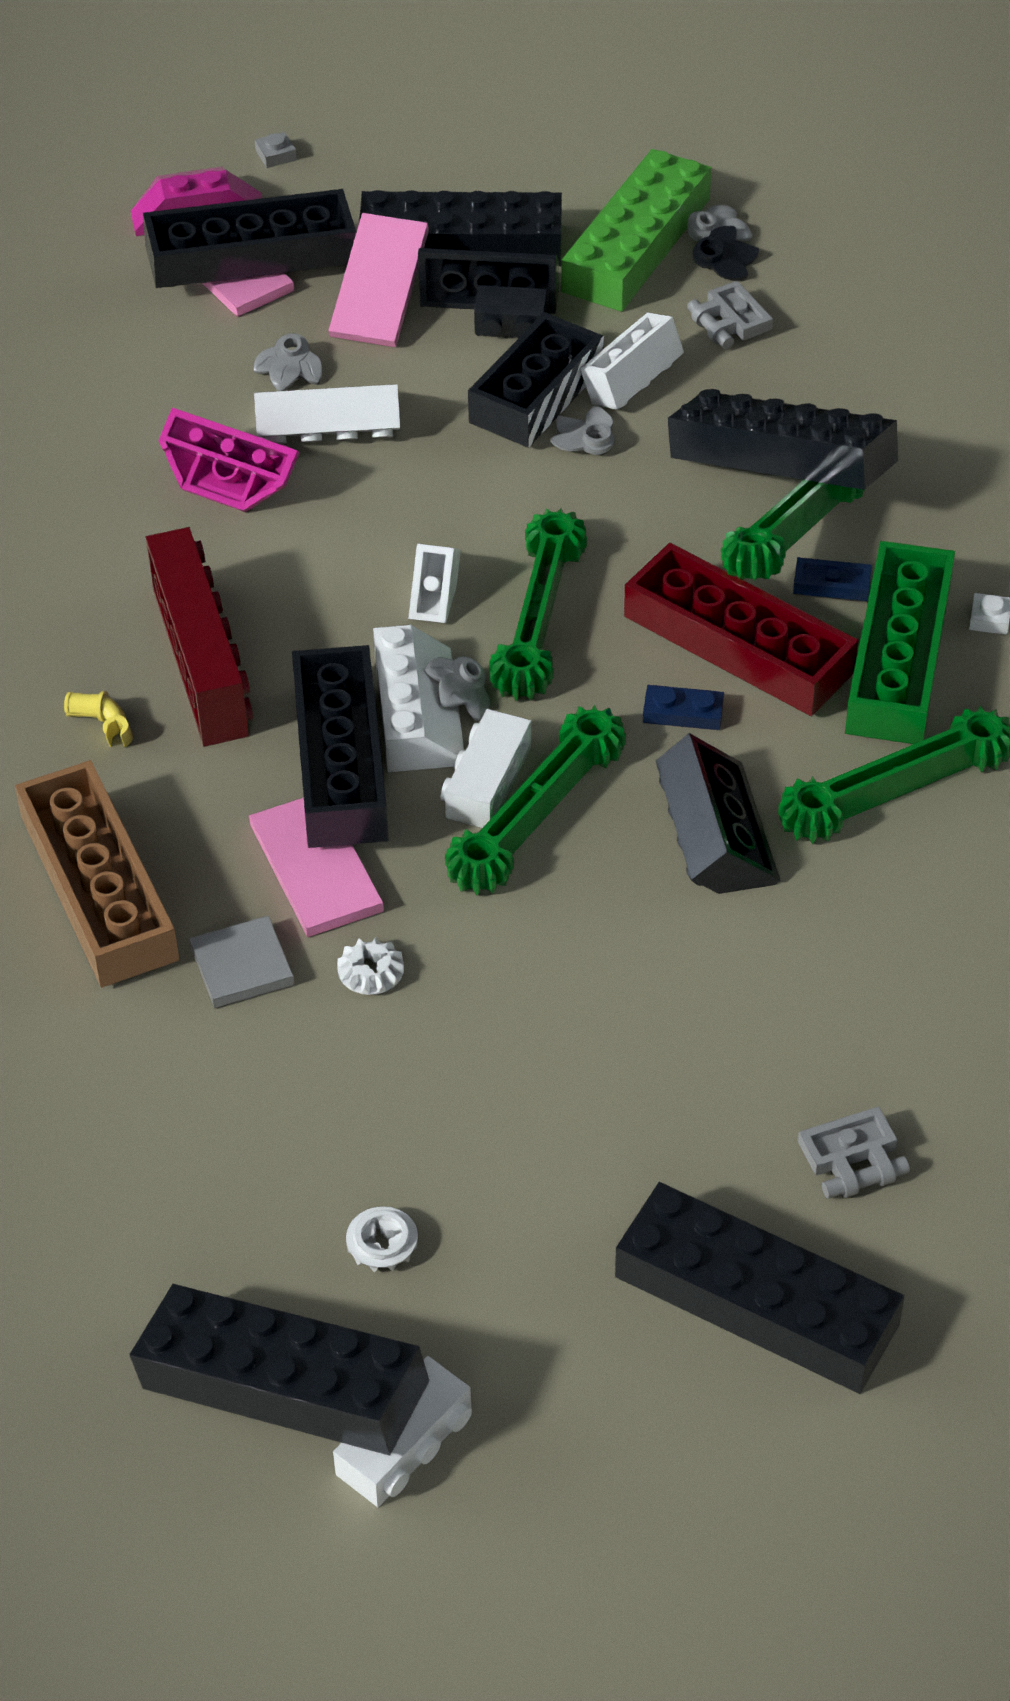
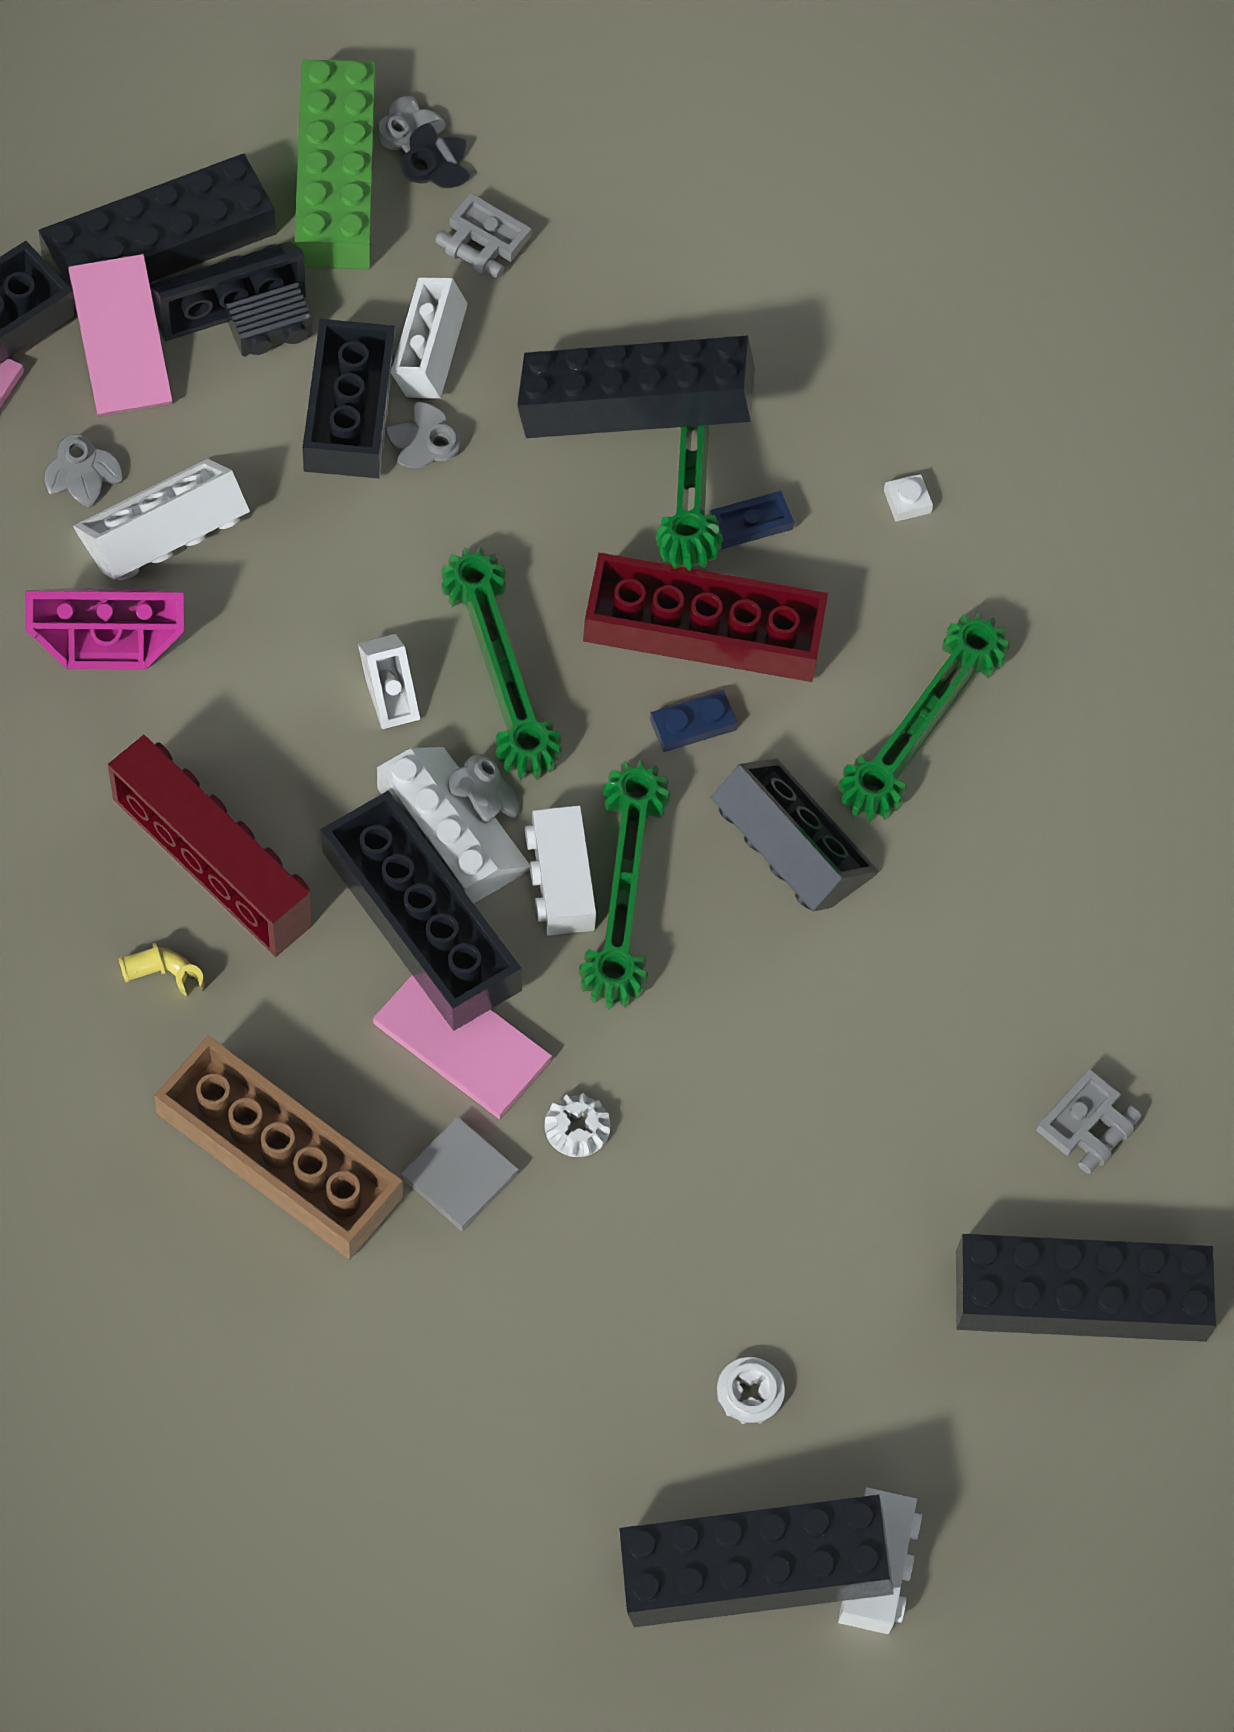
camera: 35 degrees left, 15 degrees up
(900, 643) = (859, 570): green brick -> none

